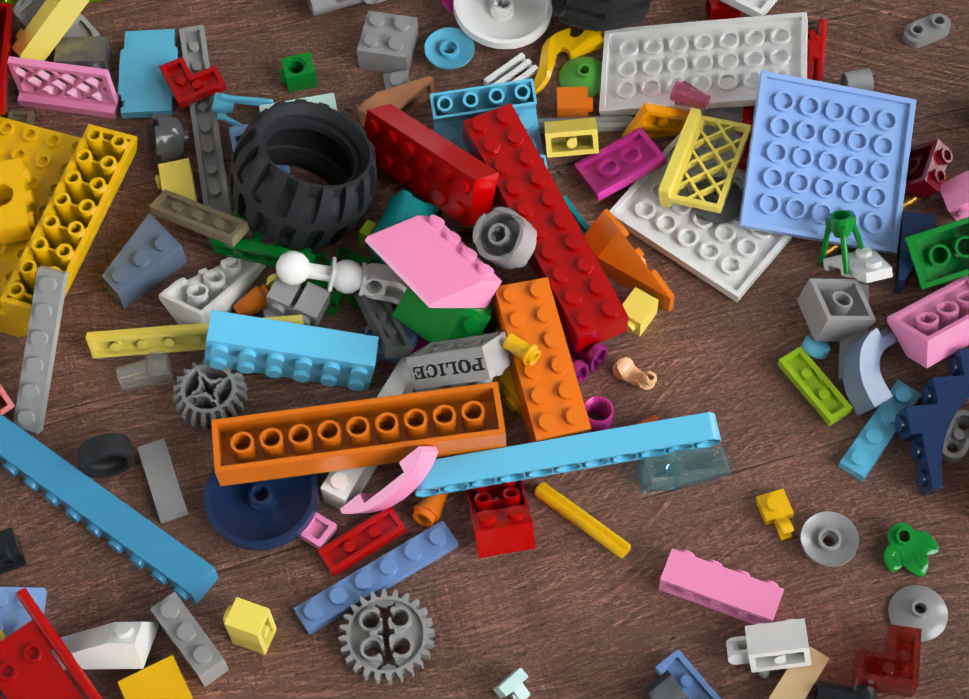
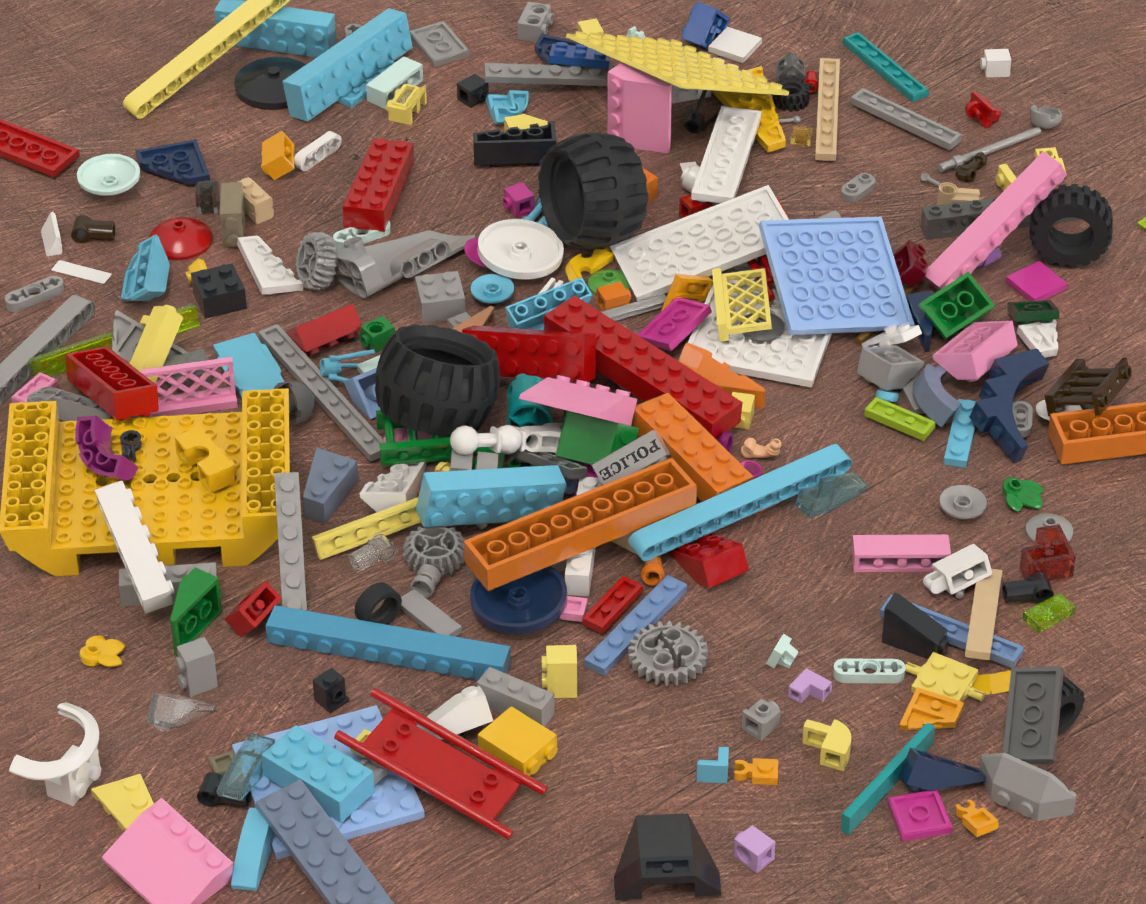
camera: 25 degrees left, 20 degrees down
(177, 178) = (325, 432): light yellow brick -> none
(180, 432) = (426, 580): none -> light grey wheel
(188, 87) = (295, 363): red plate -> none
(199, 217) = (363, 435): dark tan plate -> none
(246, 49) = (326, 330): none -> red slope
(365, 231) = (501, 411): lime piece -> none
(415, 469) = (627, 555): bright pink slope -> none
(505, 238) = (624, 371): light grey brick -> none
(520, 348) = (677, 435): yellow pin -> none
(571, 137) = (631, 314): light yellow brick -> none
(582, 520) = (775, 546): yellow axle -> none
(689, 96) = (707, 261): clear pink cone -> none
(777, 510) = (914, 499): yellow plate -> none
(840, 224) = (869, 307): green plant -> none

